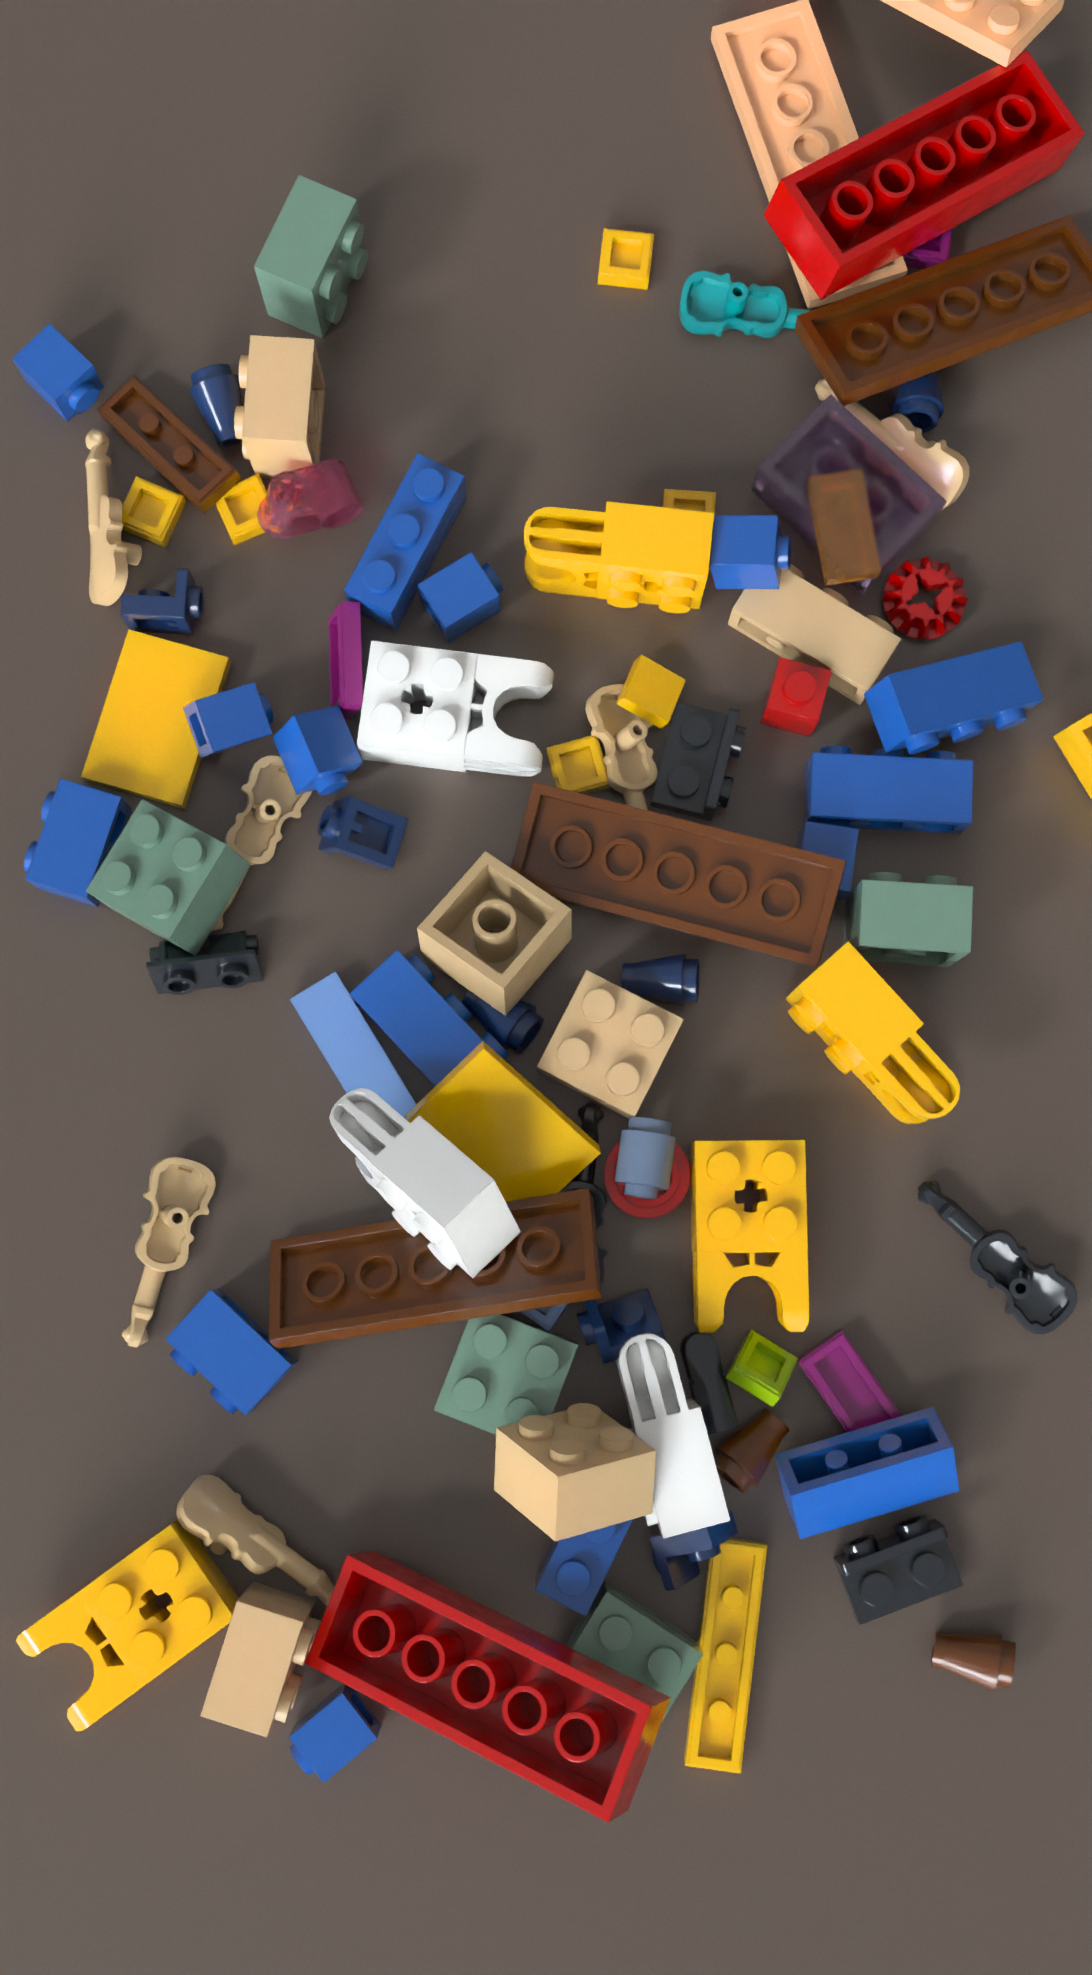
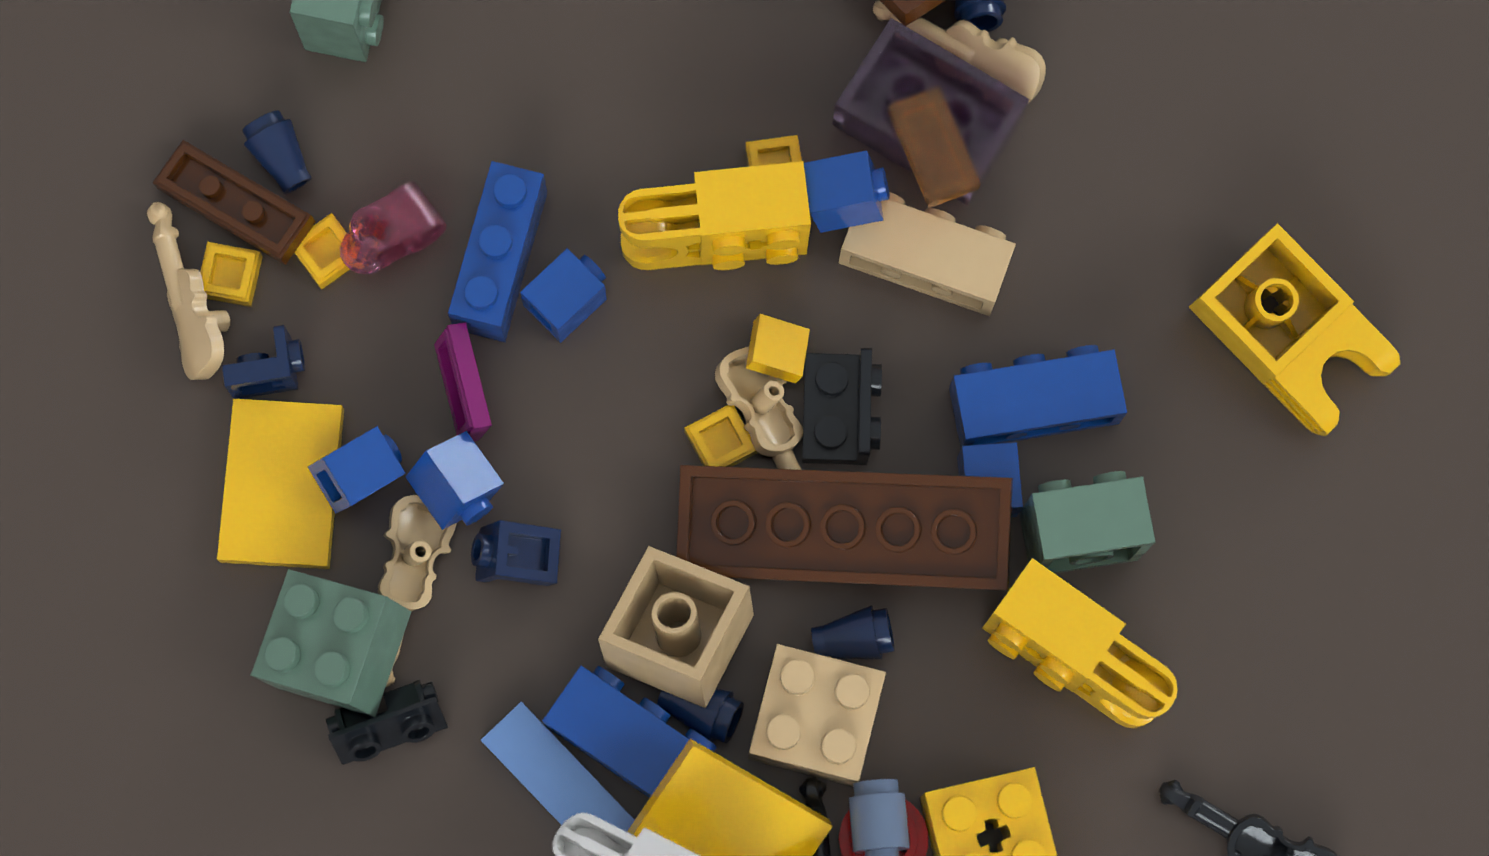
camera: 15 degrees left, 5 degrees down
(59, 373) = (107, 154): blue brick -> none
(74, 839) = (227, 626): blue brick -> none
(281, 405) = (344, 143): tan brick -> none
(463, 699) = (594, 420): white brick -> none
(795, 697) = (923, 323): red brick -> none
(918, 619) = (1029, 219): red gear -> none
(953, 698) = (1081, 292): blue brick -> none

